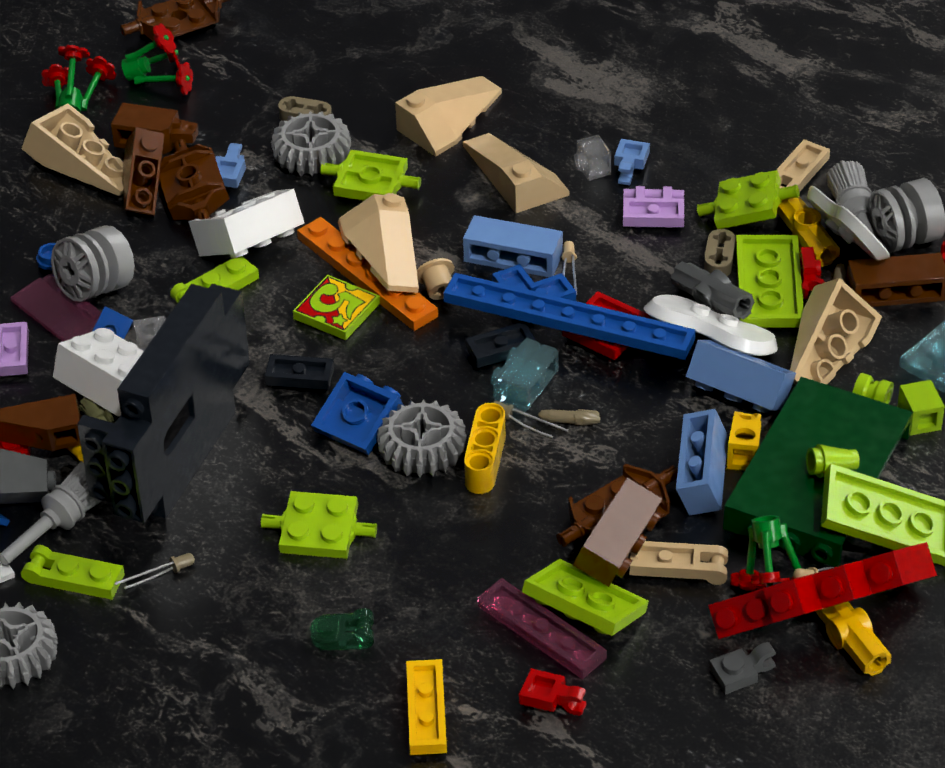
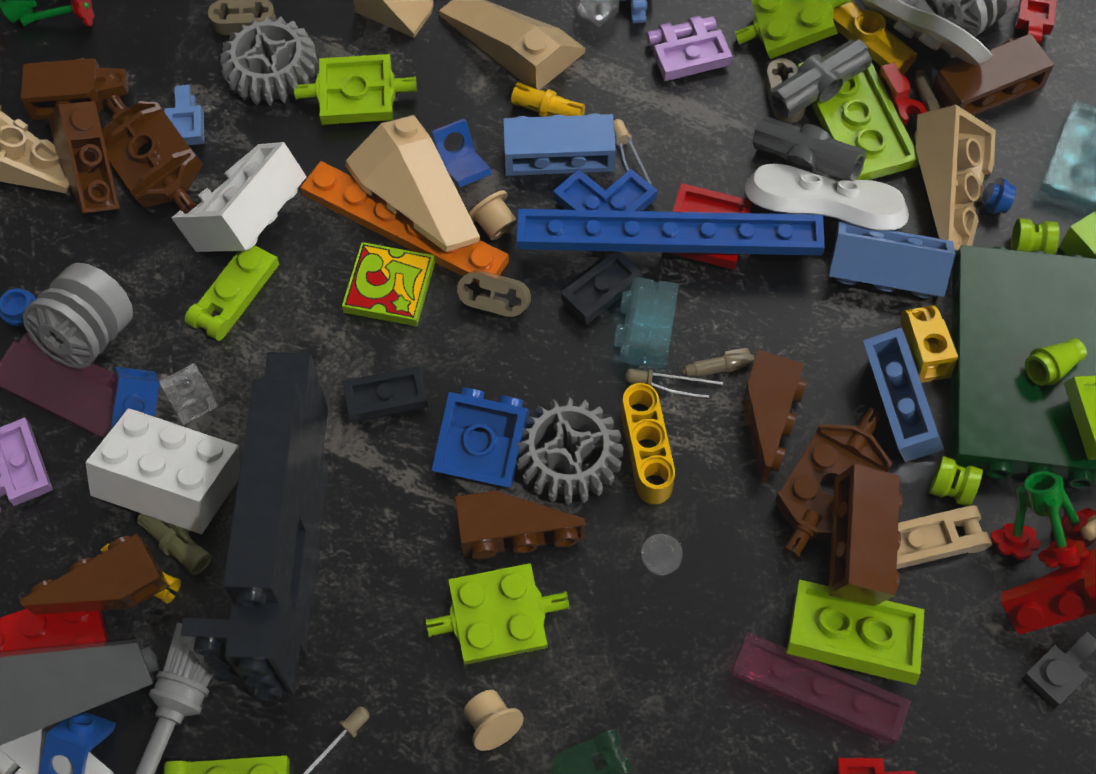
camera: 20 degrees left, 20 degrees up
(282, 583) = (492, 720): none -> tan piece
(353, 470) = (504, 522): none -> reddish brown slope
(416, 323) = (491, 301): none -> dark tan beam
(430, 243) = (464, 163): none -> blue bracket
(462, 519) = (661, 554): none -> clear plate
(507, 212) = (544, 102): none -> yellow pin
(597, 444) = (767, 404): none -> reddish brown slope
(717, 529) = (964, 485): none -> lime wheel
(744, 243) = (819, 78): none -> dark grey piece
(858, 359) = (999, 196): none -> blue plate

